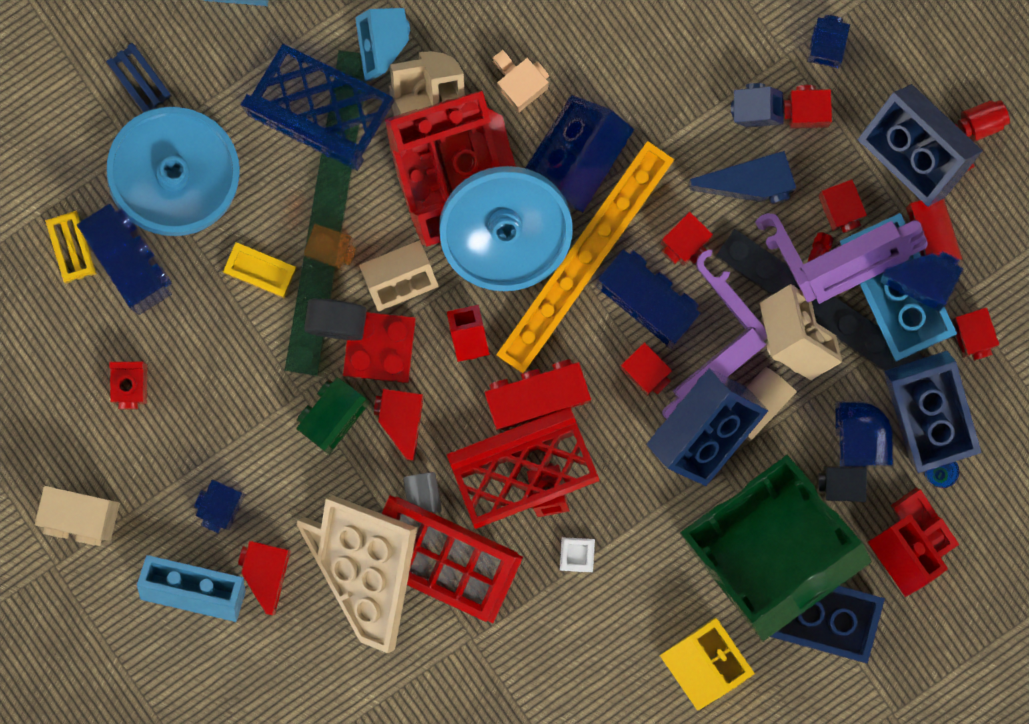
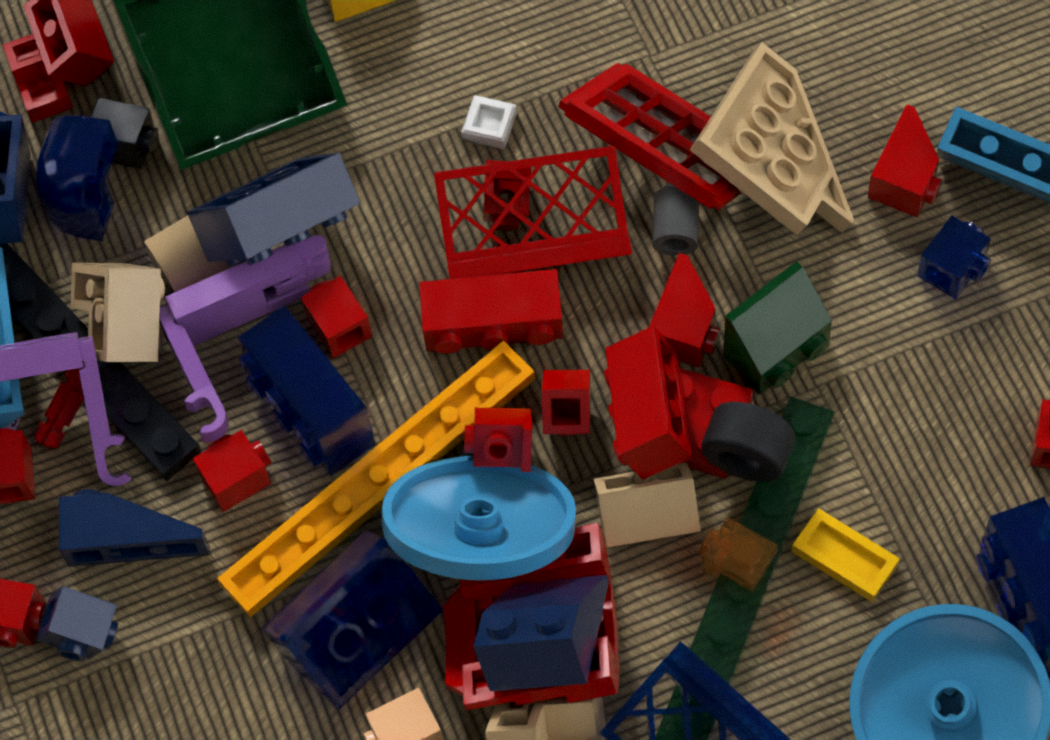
camera: 165 degrees left, 20 degrees down
(410, 338) = (647, 403): none -> red brick
(440, 148) = (541, 633): none -> dark blue slope
(507, 297) = (500, 438): none -> red brick

